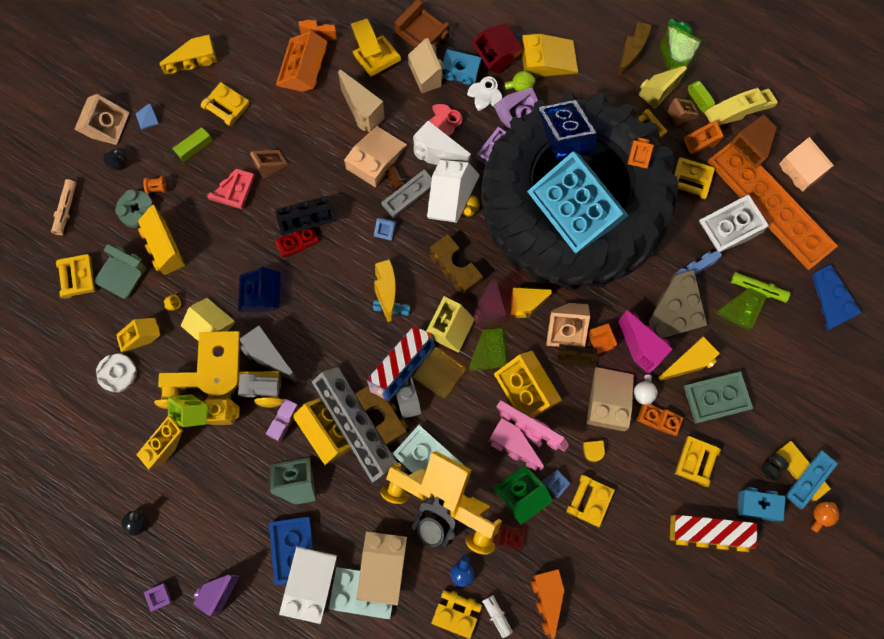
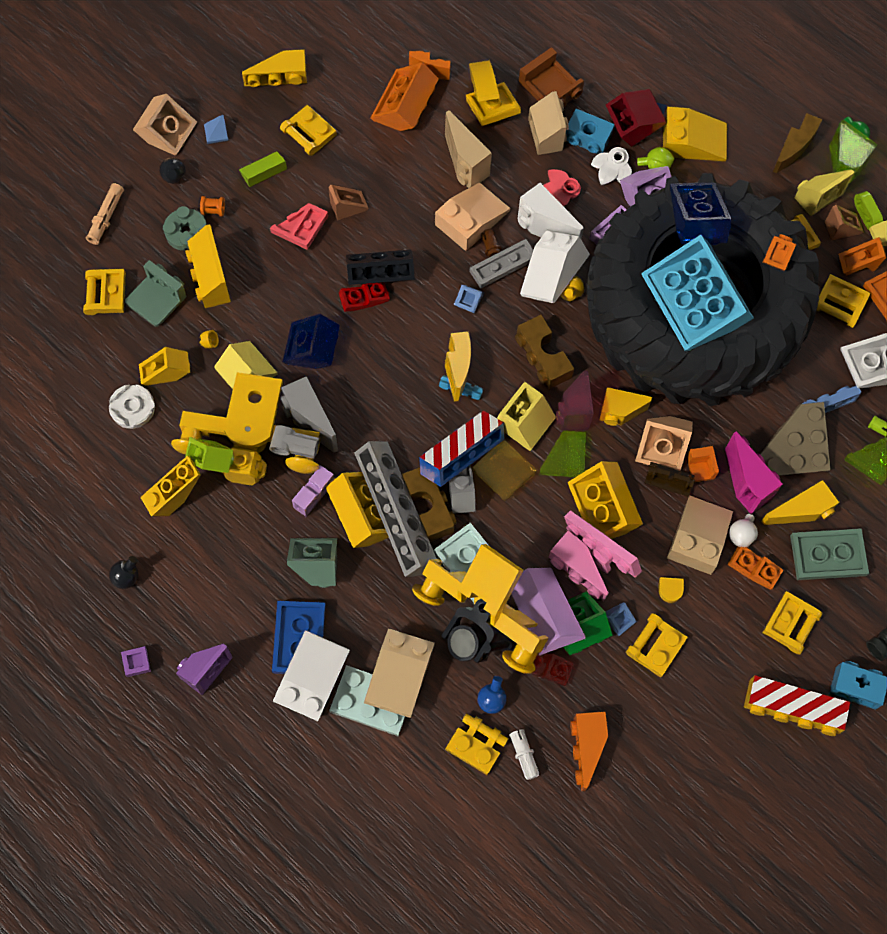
camera: 10 degrees right, 5 degrees down
(495, 488) = (543, 601): none -> lavender slope

